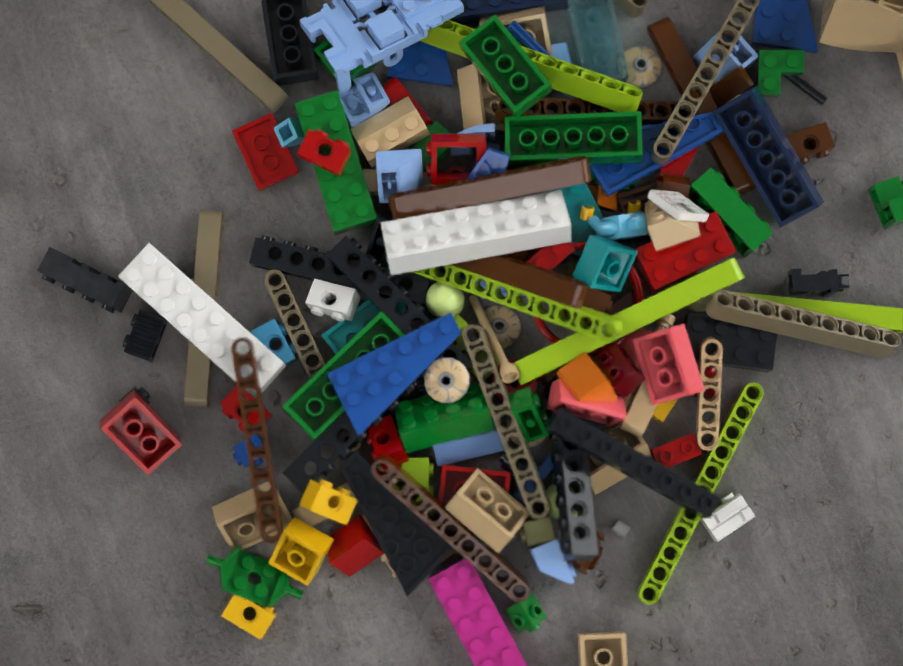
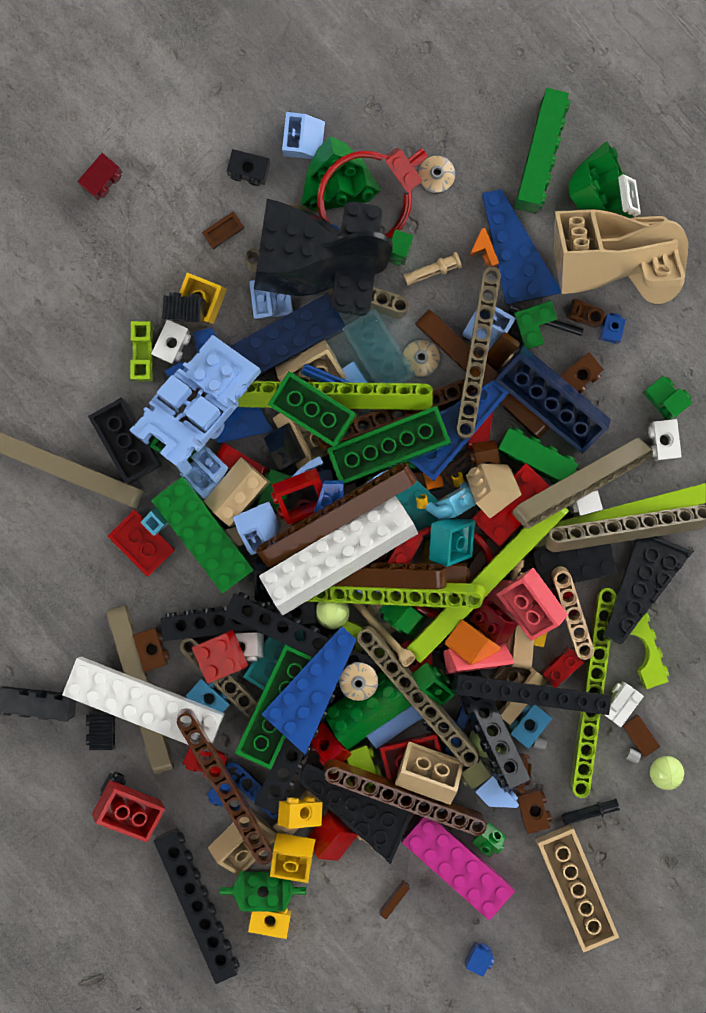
camera: 15 degrees left, 5 degrees up
(171, 648) = (219, 970): none -> black brick
(226, 257) = (148, 660): none -> reddish brown brick
(282, 465) = (252, 792): none -> blue beam
(305, 298) = (220, 656): none -> red brick
(334, 162) = (180, 538): red brick -> none
(396, 642) = (394, 899): none -> reddish brown tile
(459, 105) = (284, 447): none -> black slope
(521, 331) = (402, 618): none -> green brick
(582, 586) = (538, 821): none -> reddish brown brick
(630, 501) = (528, 736): none -> dark azure brick
(650, 625) = (590, 812): none -> black axle
(677, 205) = (494, 472): white tile -> none
(719, 580) = (633, 756): none -> light grey piece
(735, 562) = (640, 735): none -> reddish brown tile
(751, 612) = (667, 773): none -> yellowish green piece
(764, 281) = (586, 505): none -> white brick
(769, 253) = (582, 483): none -> dark tan beam
(774, 436) = (652, 670): none -> lime arch
(804, 385) = (645, 578): none -> black wing
(823, 282) = (634, 486): black hips -> none
(834, 81) = (584, 313): none -> reddish brown piece
(859, 108) = (612, 328): none -> blue brick
(884, 238) = (669, 429): none -> white brick

